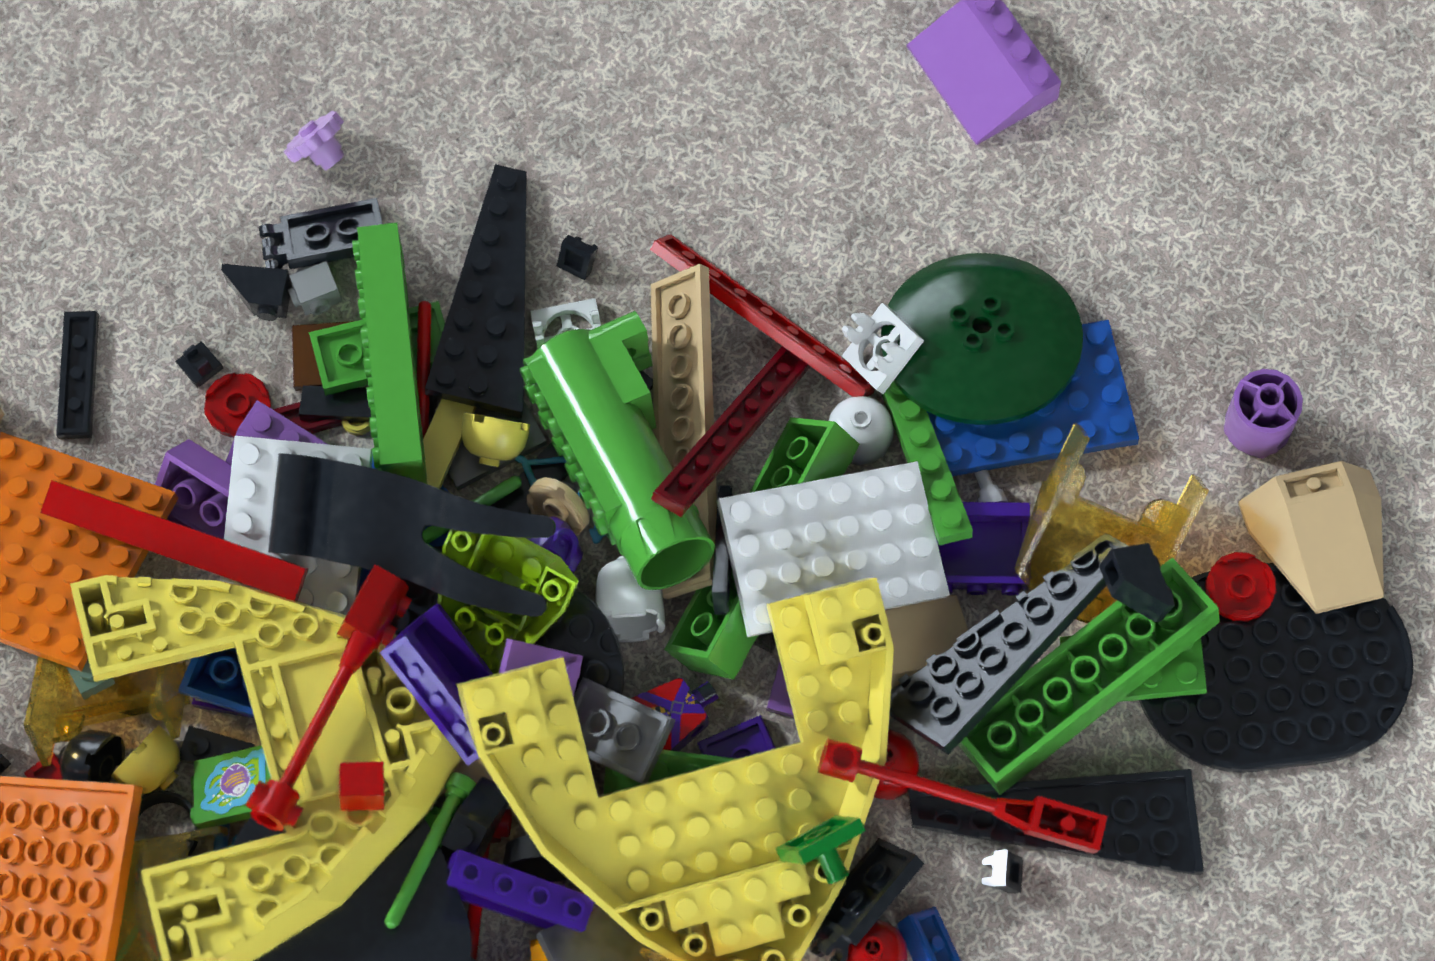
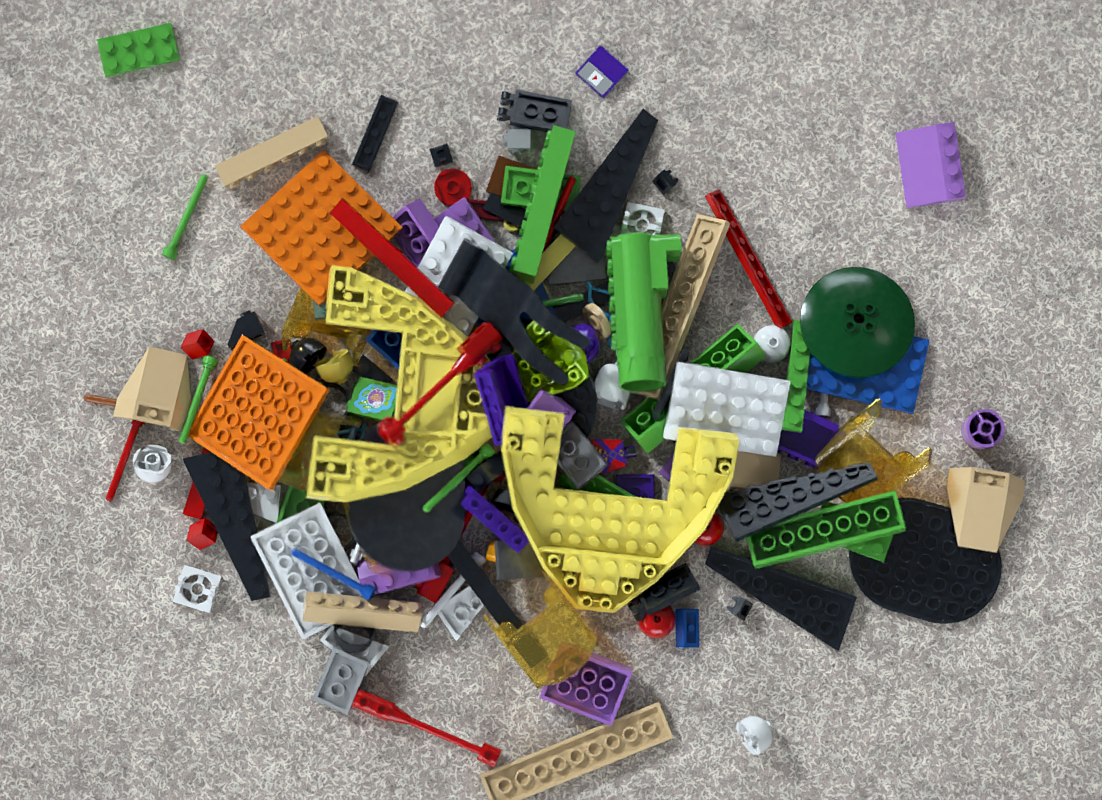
camera: 20 degrees right, 15 degrees up
(260, 289) = (490, 129): black slope -> none
(317, 141) = (552, 54): lavender plant -> none
(361, 786) = (438, 438): red panel -> none
(407, 139) = (601, 71): none -> dark purple tile
(493, 438) = (579, 268): light yellow cylinder -> none
(729, 432) = (701, 324): dark red tile -> none
(821, 844) = (652, 559): green tile -> none
(896, 356) = (806, 317): white piece -> none
(1037, 818) = (764, 589): red bar -> none
(1137, 581) = (870, 497): black slope -> none
(1241, 586) = (927, 514): red tile -> none

